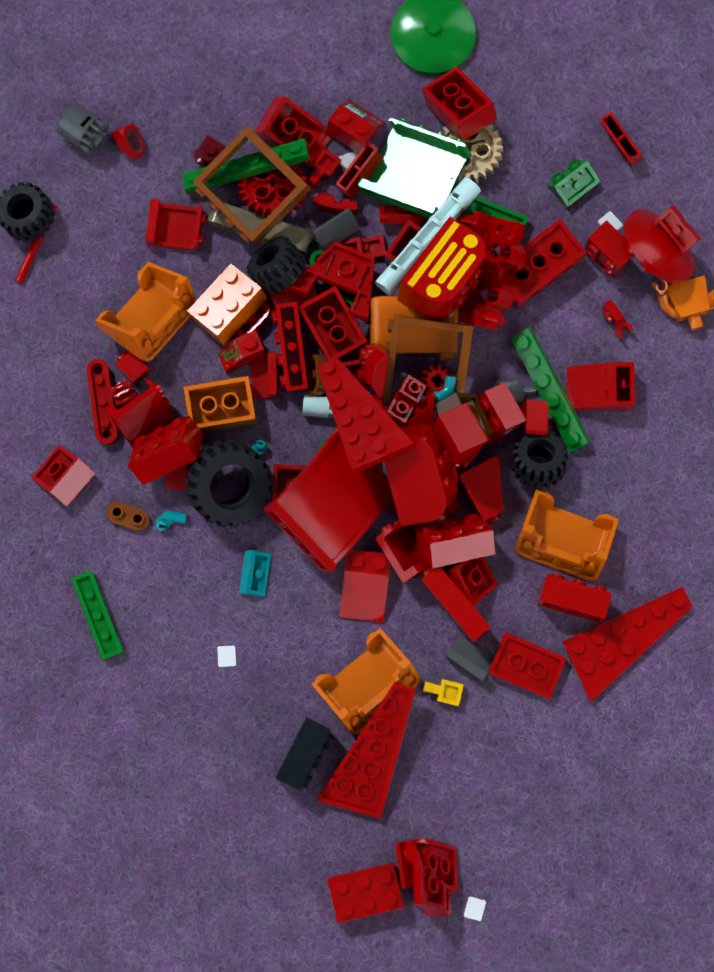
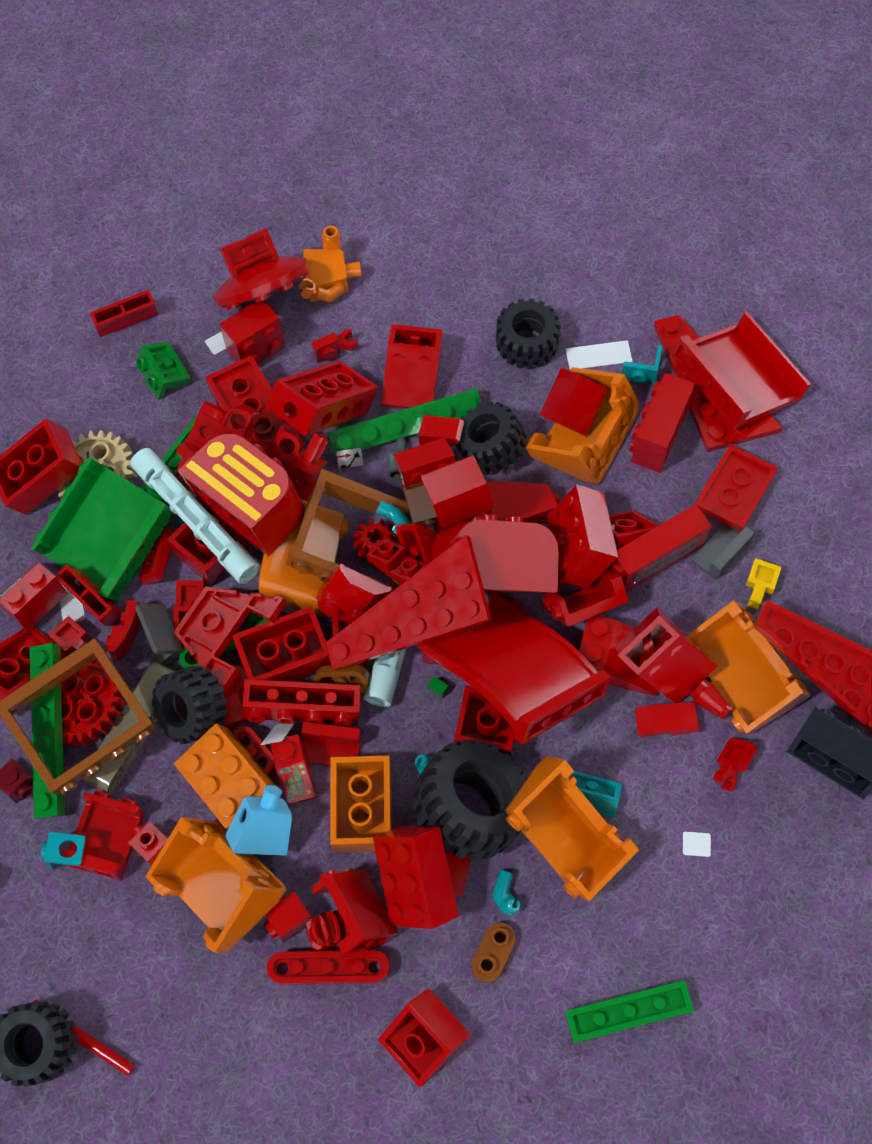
camera: 80 degrees left, 15 degrees down
(158, 191) = (51, 854): none -> teal bracket
(178, 254) = (147, 842): none -> red brick
(191, 335) = (261, 825): none -> medium azure torso
(213, 554) = (568, 829): none -> orange windscreen
(264, 334) = (278, 733): none -> white sticker
(292, 678) = (733, 759): none -> red plate
(318, 625) = (667, 718): none -> red slope
(339, 657) = (711, 699): none -> red cone
(361, 614) = (665, 656): none -> red slope
(511, 350) = (349, 458): none -> white sticker
(551, 317) = (321, 397): none -> red brick
(584, 524) = (574, 401): none -> red slope
(624, 579) = (642, 373): none -> teal bracket
(636, 661) = (741, 372): none -> red panel
(644, 543) = (599, 354): none -> white sticker
(660, 464) = (529, 316): none -> black tyre

